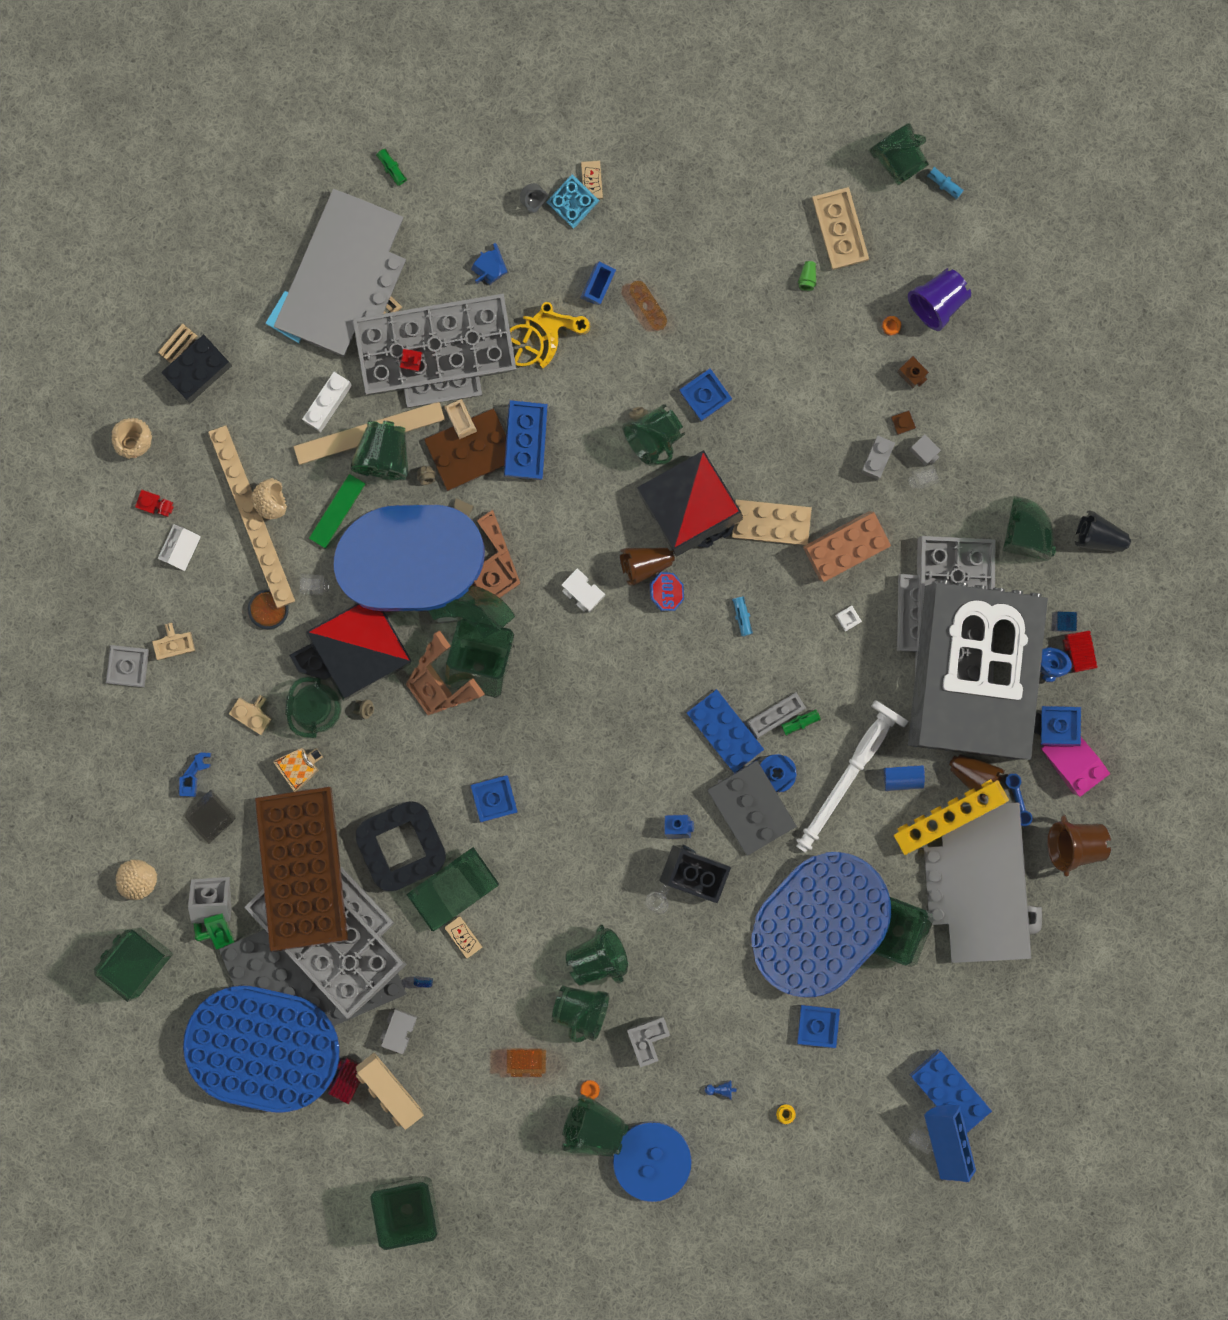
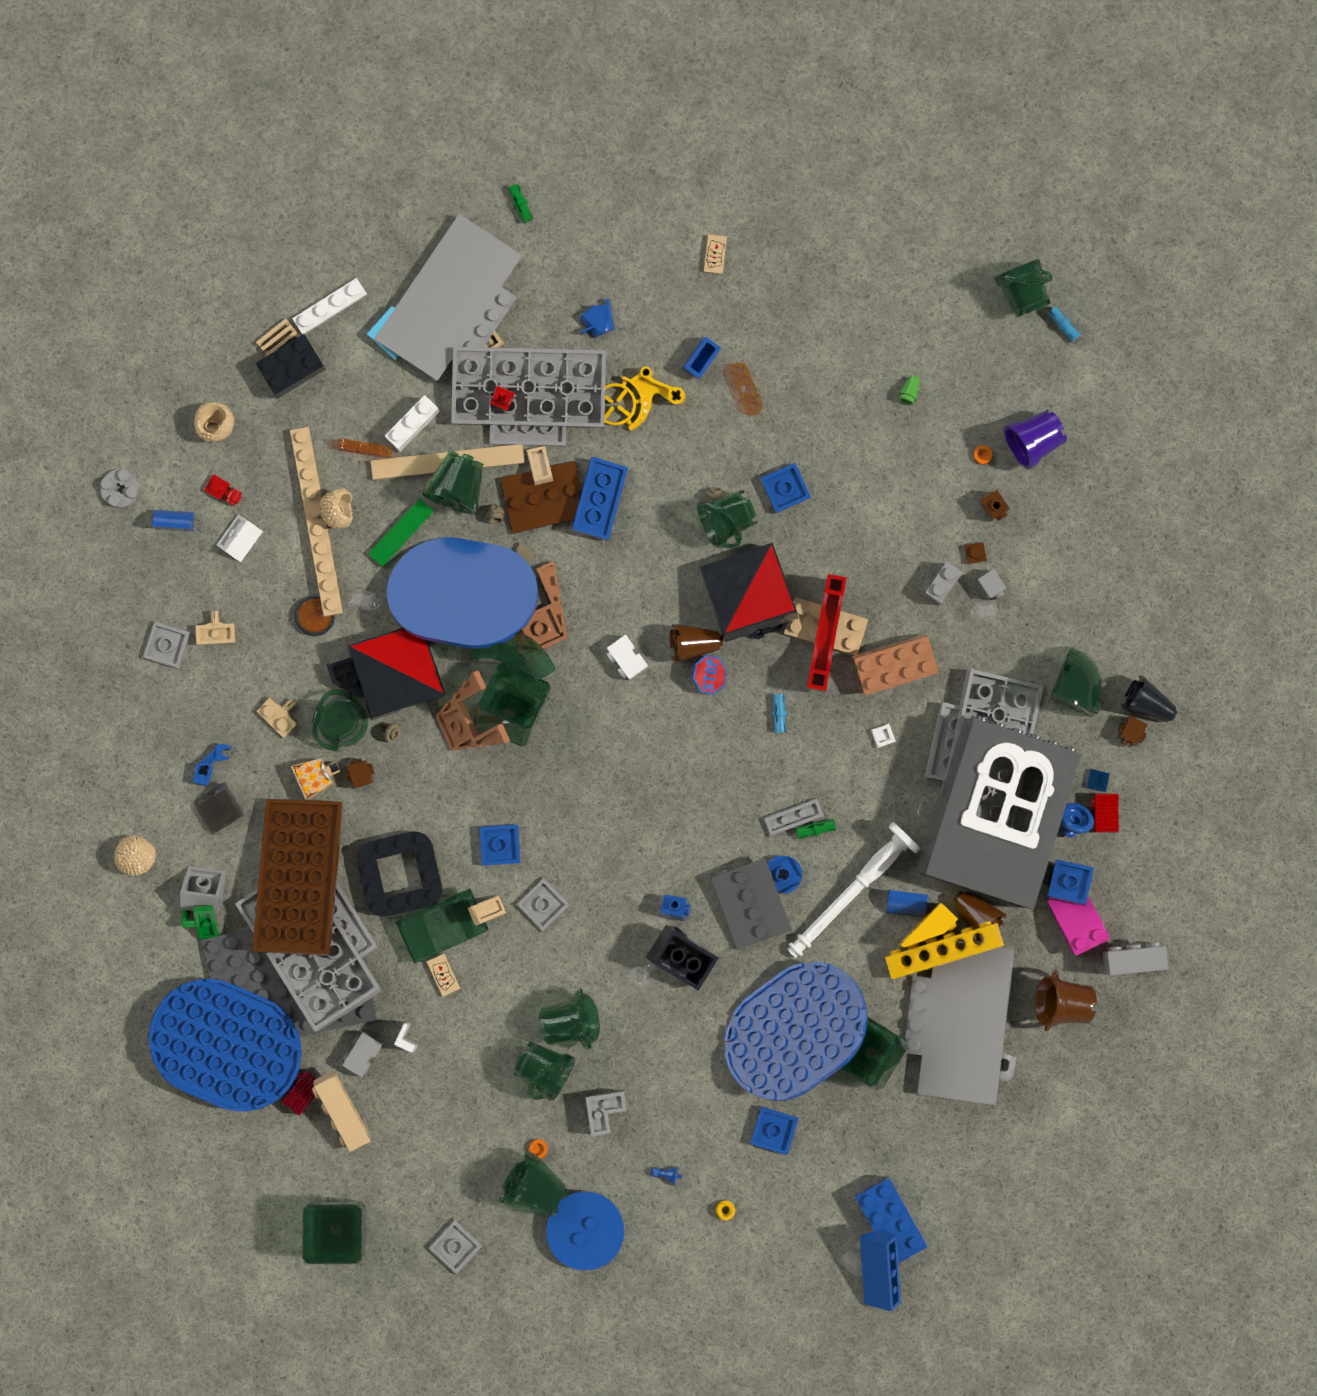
camera: 15 degrees right, 0 degrees up
(62, 523) = (129, 493): none -> light grey plate
(110, 542) = (173, 520): none -> blue brick
(132, 963) = (115, 936): clear green plate -> none
(224, 303) = (329, 306): none -> white plate
(280, 434) = (358, 446): none -> clear orange beam
(342, 755) = (360, 773): none -> reddish brown brick
(424, 982) = (395, 1010): clear blue tile -> none
(438, 1012) = (403, 1042): none -> white panel
(493, 865) = (486, 910): none -> tan tile
(526, 1061) = (481, 1108): clear orange brick -> none
(527, 1202) = (455, 1246): none -> light grey tile
(533, 197) = (653, 260): dark grey piece -> none
(547, 848) = (543, 904): none -> light grey tile
(573, 201) = (692, 271): medium azure tile -> none
(725, 731) = (739, 823): blue plate -> none
(773, 528) = (826, 633): none -> red arch
(840, 228) = (951, 349): tan plate -> none
(937, 791) = (934, 924): none -> yellow slope
(1015, 781) = (1014, 928): blue bar -> none
(1091, 567) = (1132, 731): none -> reddish brown brick
(1138, 788) = (1135, 959): none -> light grey brick

